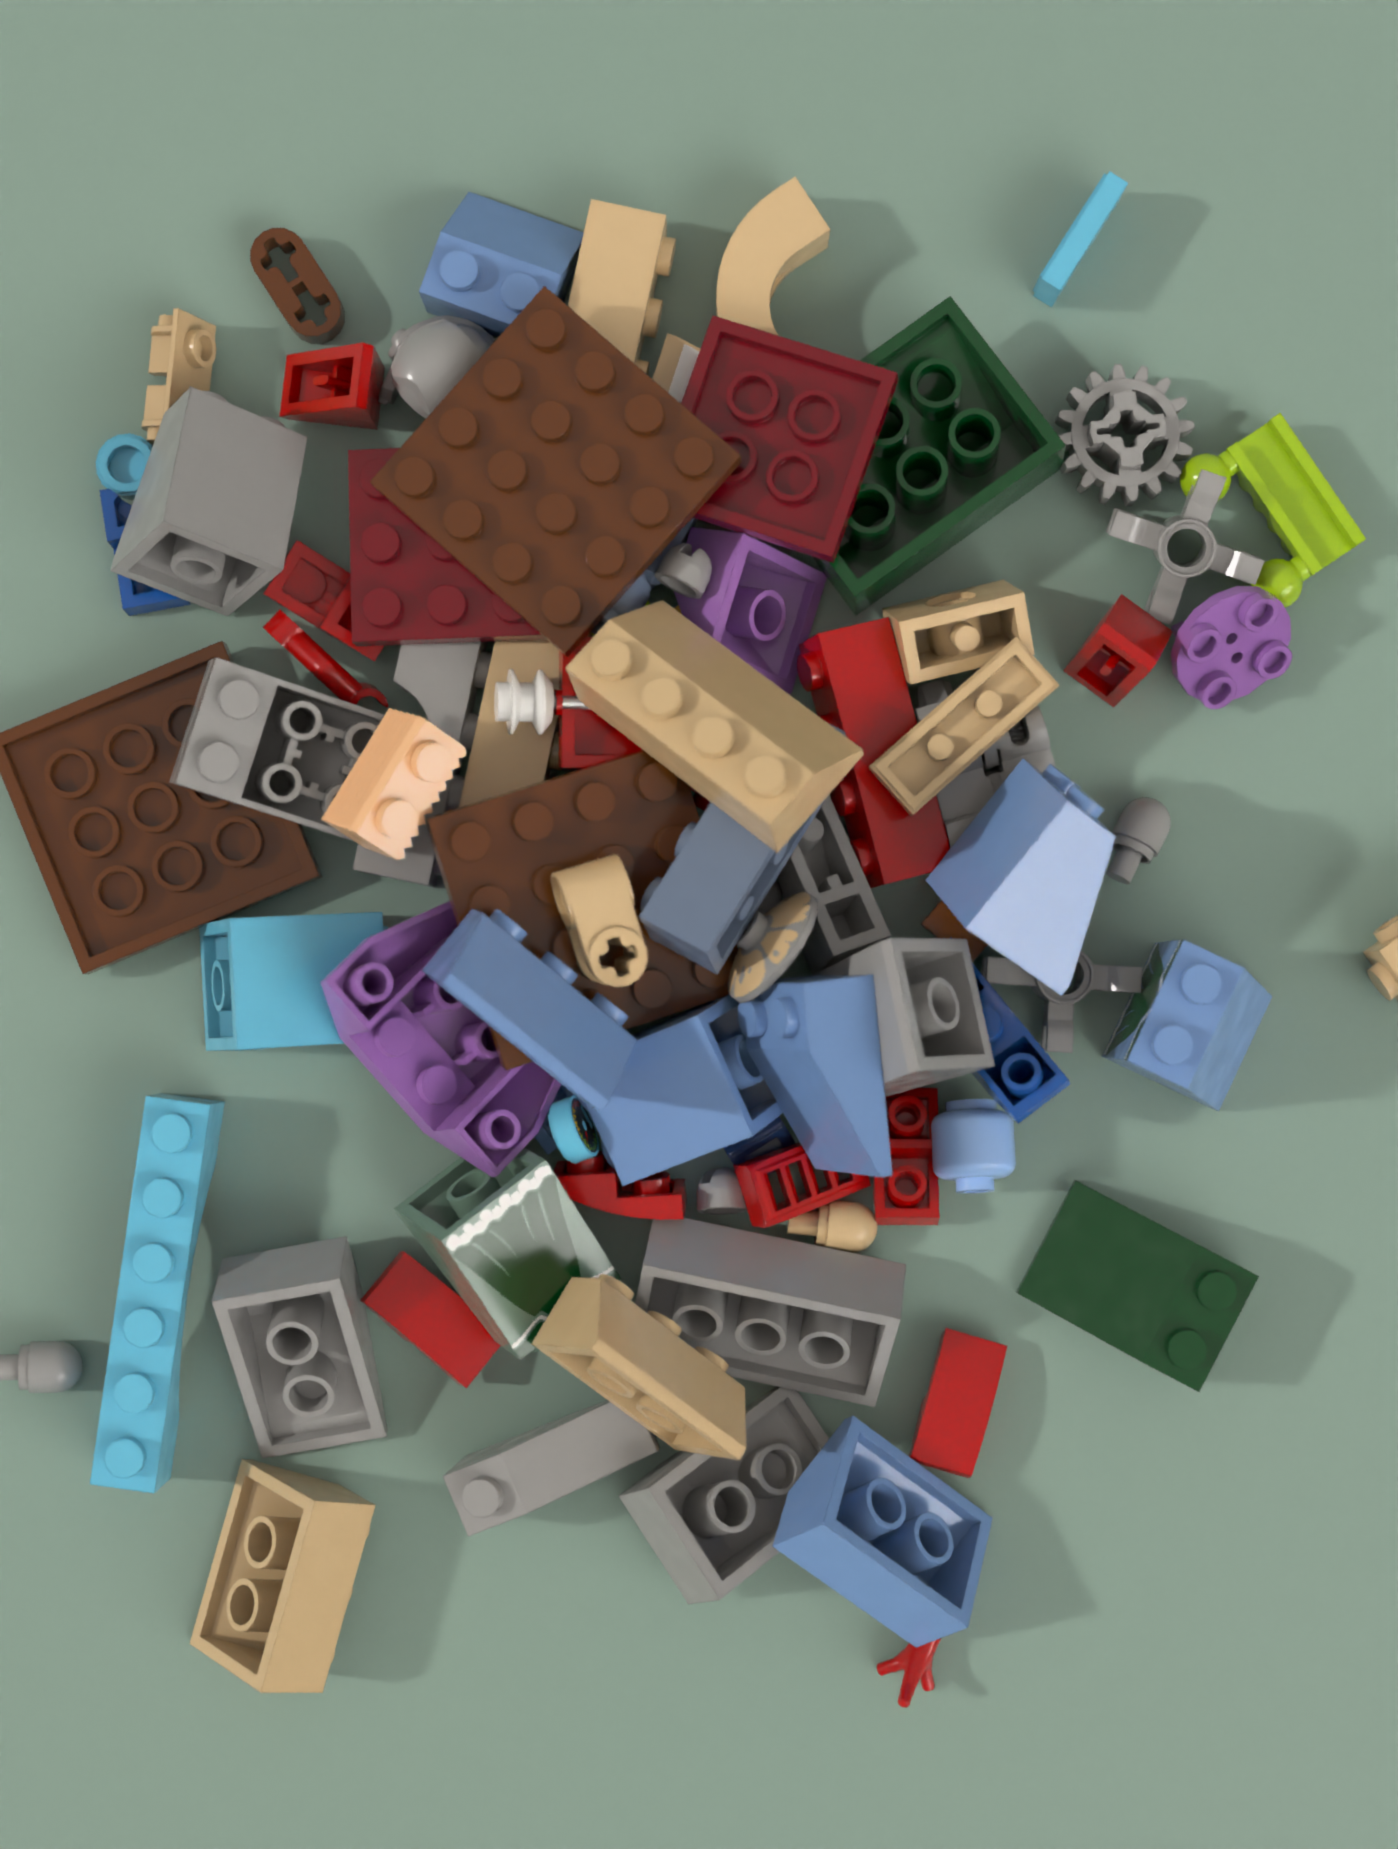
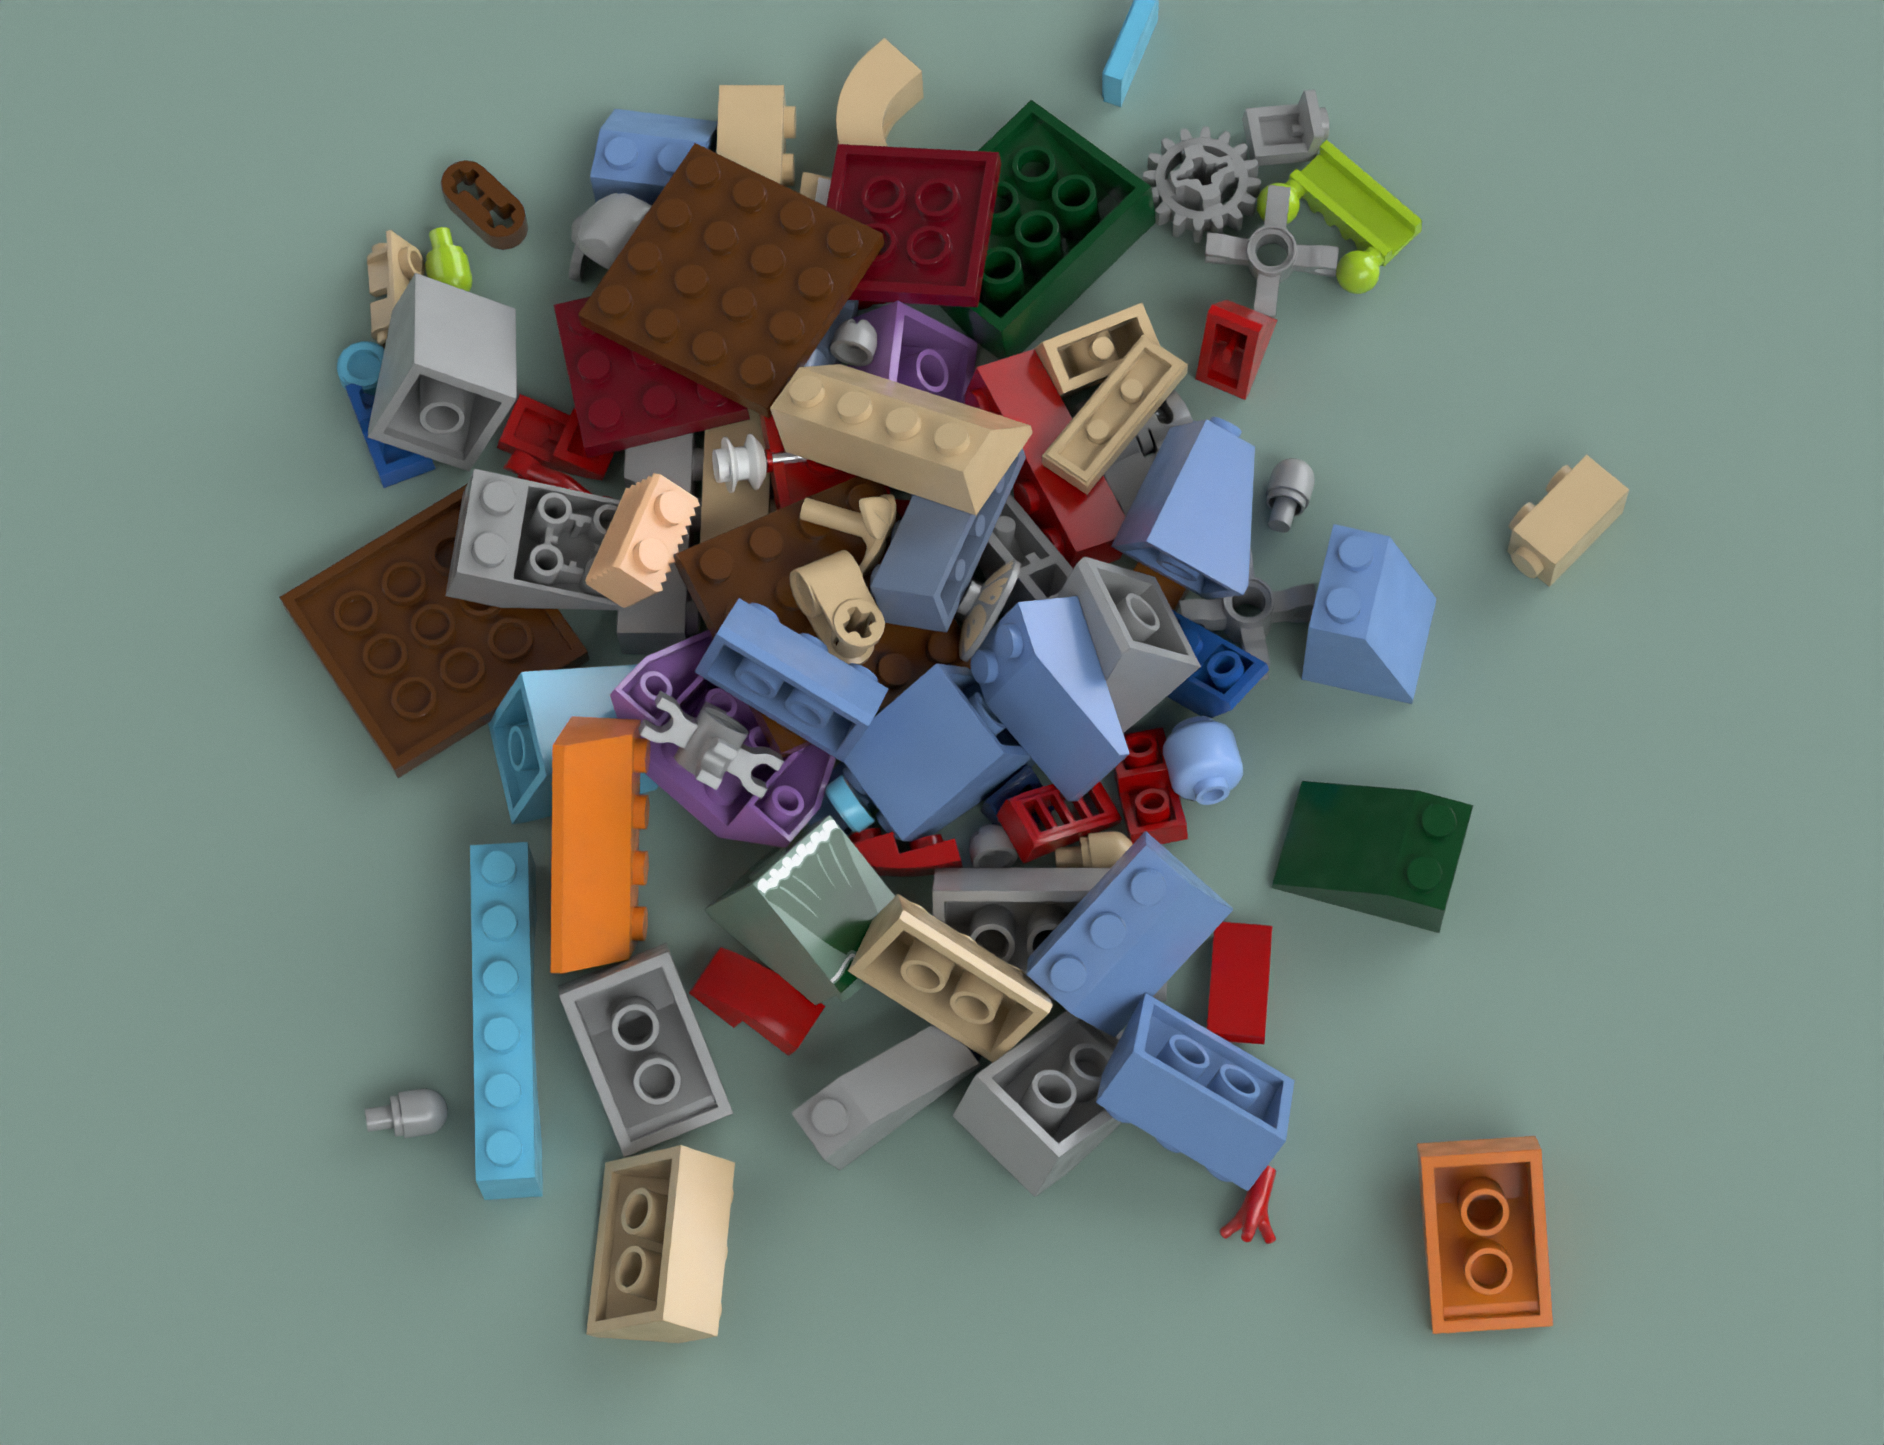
camera: 10 degrees left, 20 degrees down
(242, 359) = (447, 261): none -> lime cylinder
(280, 1137) = (597, 842): none -> orange slope
(334, 386) = (531, 269): red slope -> none
(422, 1070) = (711, 745): none -> light grey pin
(656, 830) = (872, 524): none -> tan plant
(840, 1357) = (1126, 936): none -> medium blue slope
(1158, 1734) = (1485, 1234): none -> orange slope
(1233, 666) = (1348, 306): medium lavender plate -> none
(1235, 387) = (1286, 131): none -> light grey bracket

